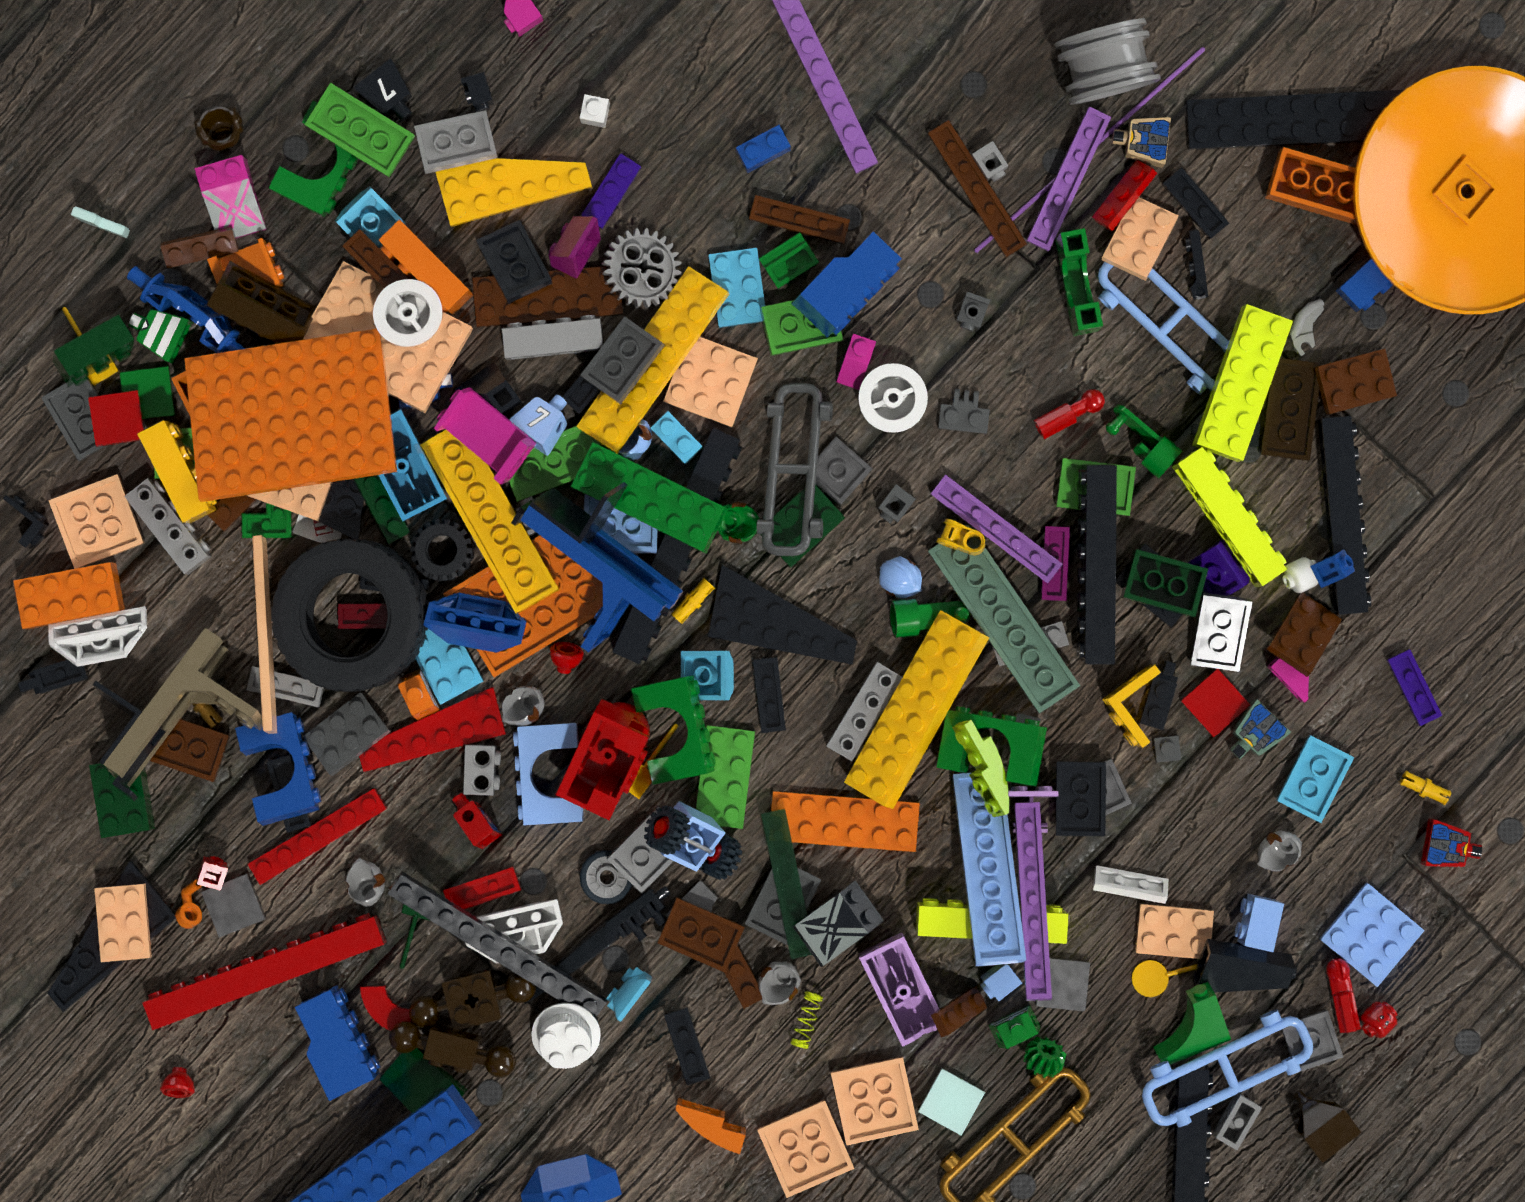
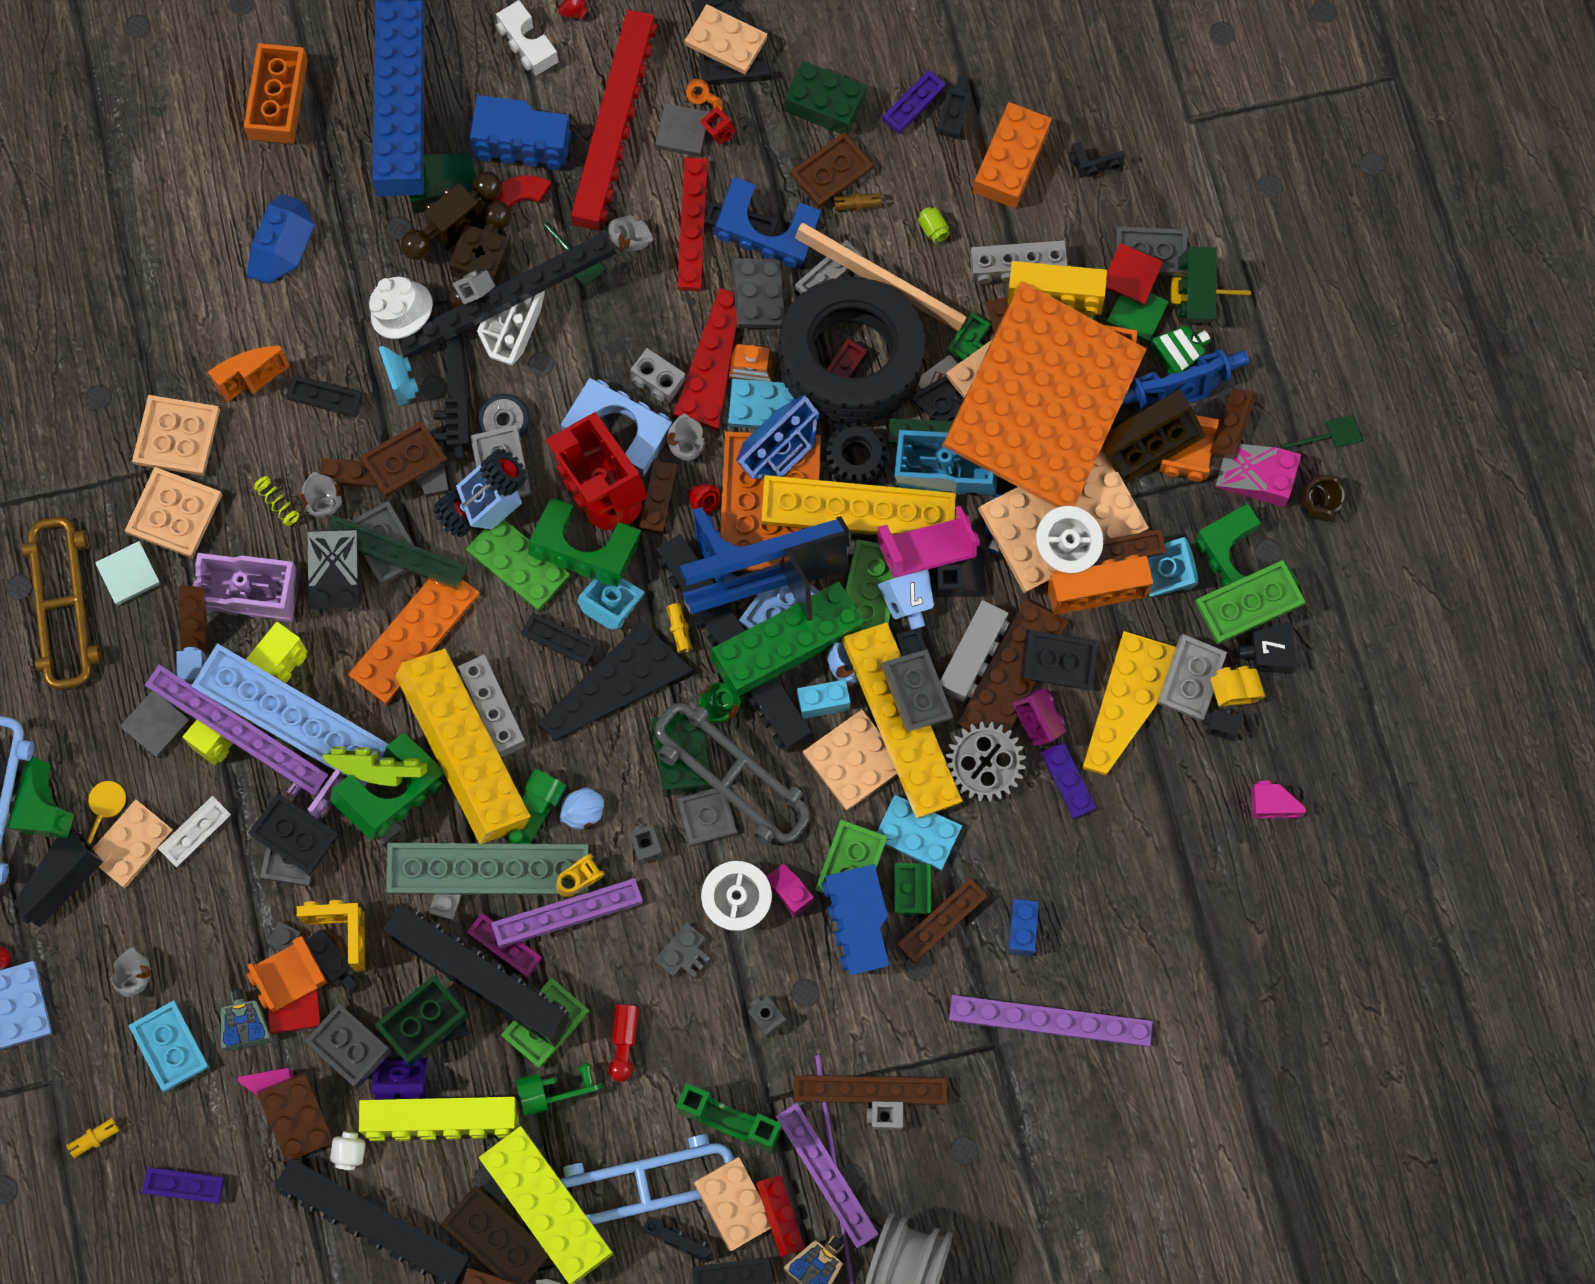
camera: 120 degrees right, 15 degrees down
(72, 716) = (913, 102): none -> dark purple plate
(96, 521) = (1058, 211): light nougat plate -> none
(98, 636) = (963, 152): white wedge -> none
(99, 222) = (1309, 352): light aqua tile -> none
(144, 150) = (1341, 430): none -> dark green piece
(181, 623) = (933, 224): none -> lime brick
(185, 685) = (865, 148): dark tan piece -> none
(246, 1083) = (535, 53): none -> white arch
(439, 98) = (1237, 686): none -> yellow brick
(481, 829) = (618, 344): red torso -> none
(484, 888) = (561, 318): red plate -> none
(508, 979) = (474, 285): none -> light grey brick
(587, 696) = (659, 497): none -> reddish brown plate
(594, 111) = (1146, 808): white brick -> none
(643, 777) = (560, 493): yellow piece -> none
(1015, 1028) = (145, 657): green torso -> none
(1044, 1057) = (106, 666): green gear -> none
(1198, 722) = (286, 975): none -> orange panel
(1259, 922) = (80, 911): light blue brick -> none
(1333, 568) = (332, 1178): blue bracket -> none
(1447, 846) = (30, 1122): torso -> none

